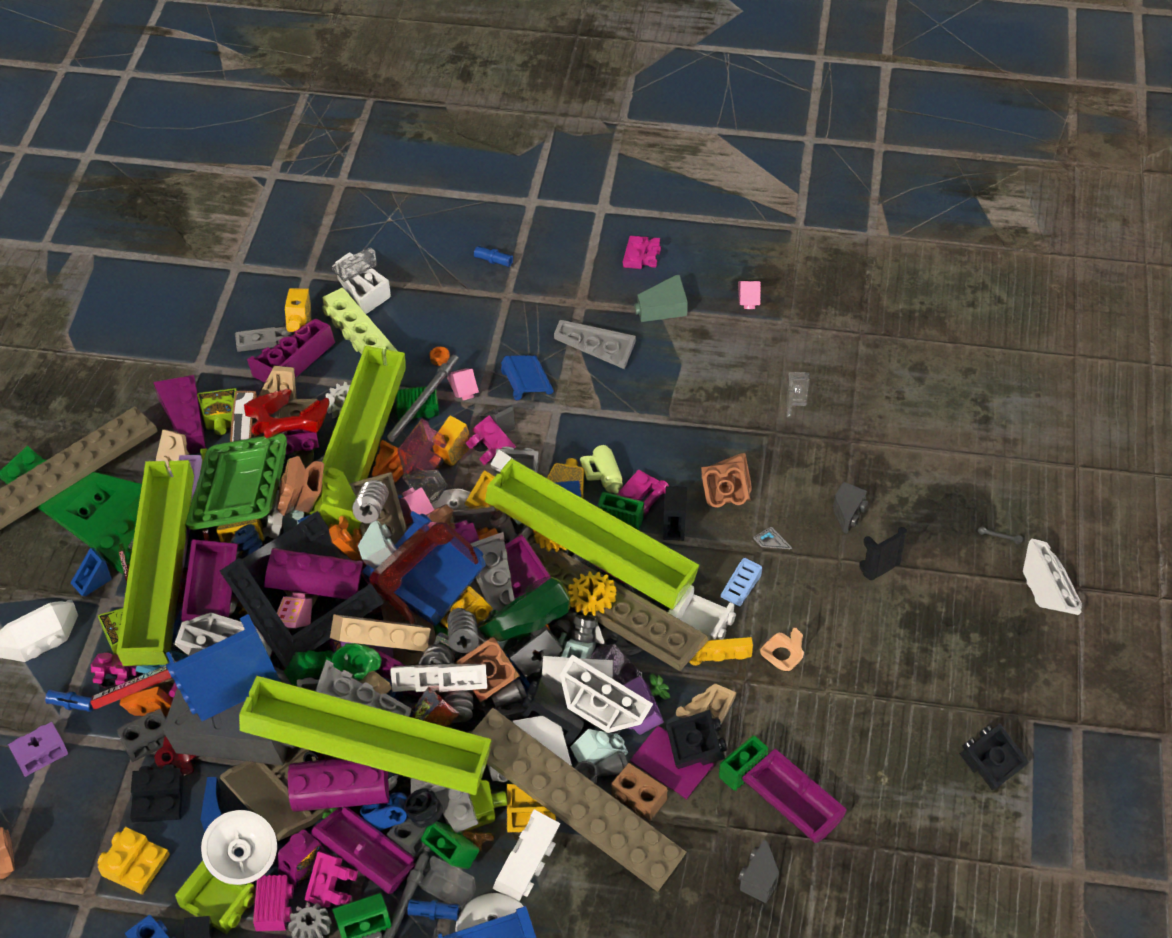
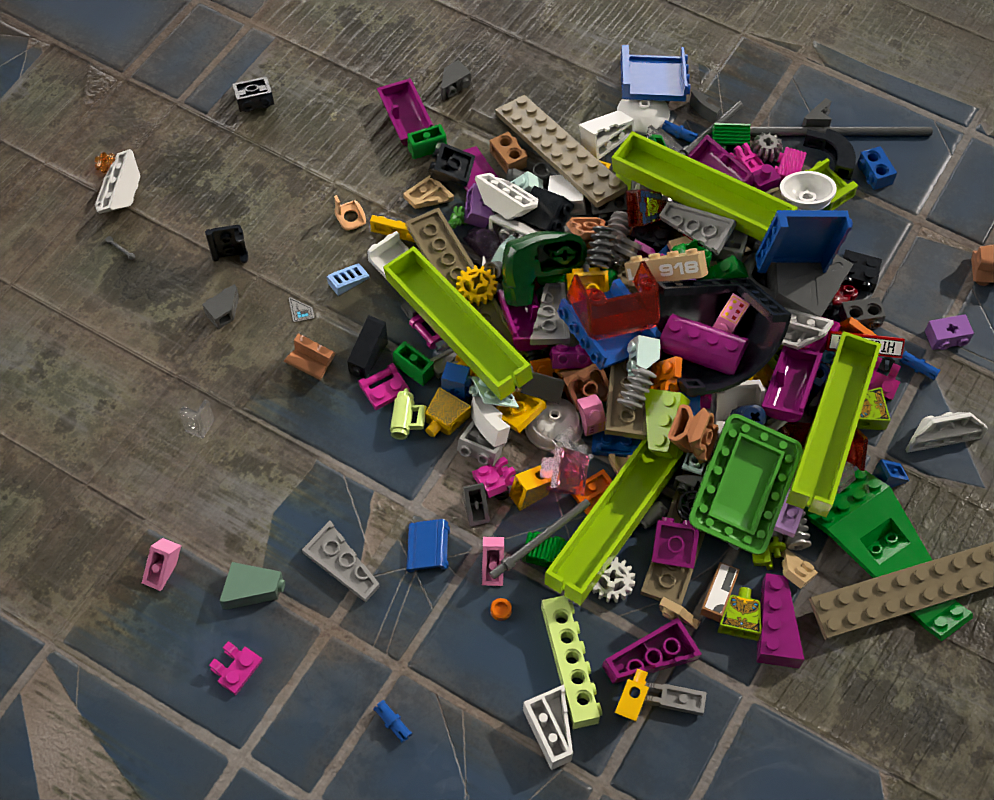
camera: 160 degrees left, 10 degrees up
(132, 860) = (884, 230): yellow plate -> none
(265, 405) = (660, 532): red piece -> none
(355, 264) = (554, 733): clear panel -> none
(439, 677) = (625, 227): white slope -> none
(1094, 618) = (104, 161): none -> clear orange plant

